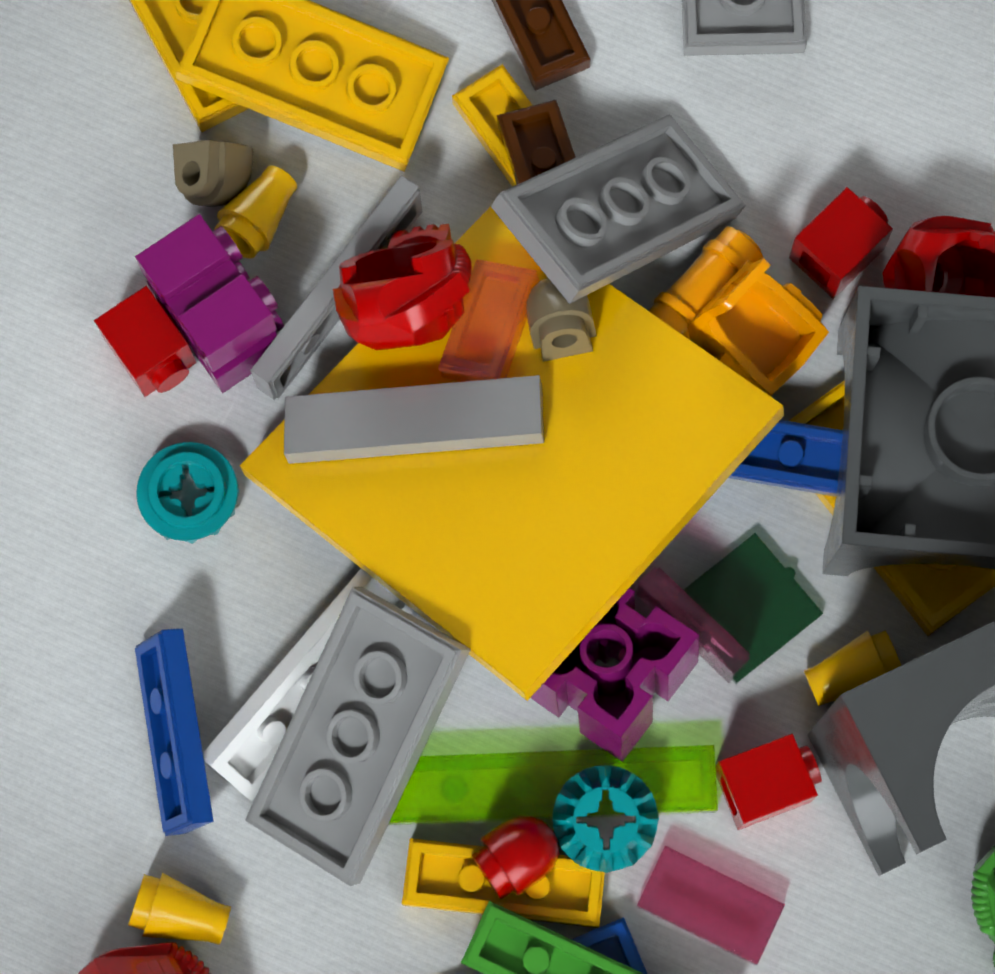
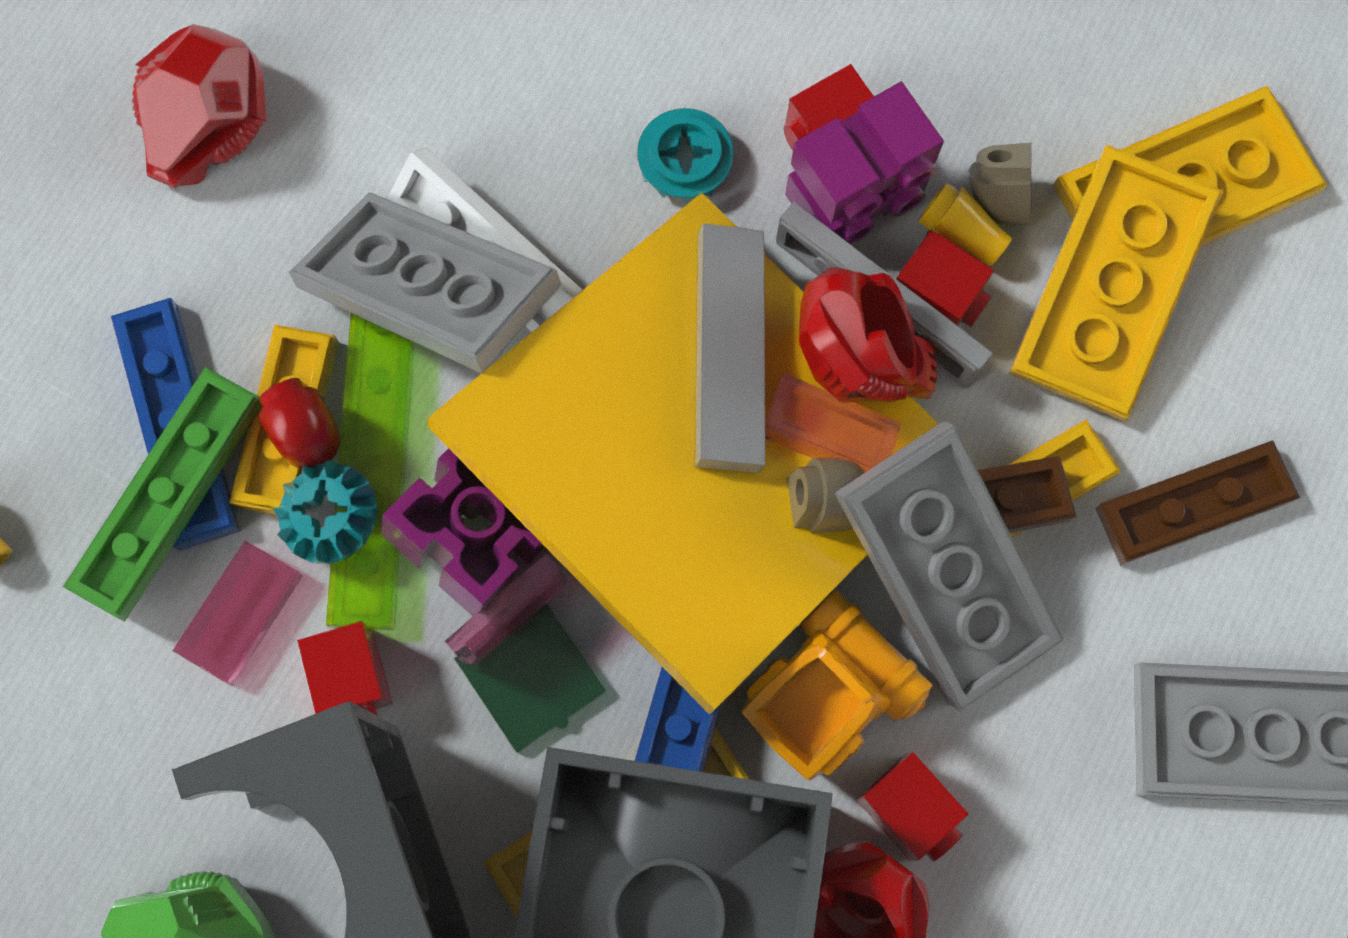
camera: 90 degrees right, 0 degrees up
(173, 732) = (452, 129): blue tile -> none
(177, 912) = (292, 128): yellow cone -> none
(321, 226) = (948, 279): none -> red brick
(852, 666) = (451, 780): yellow cone -> none

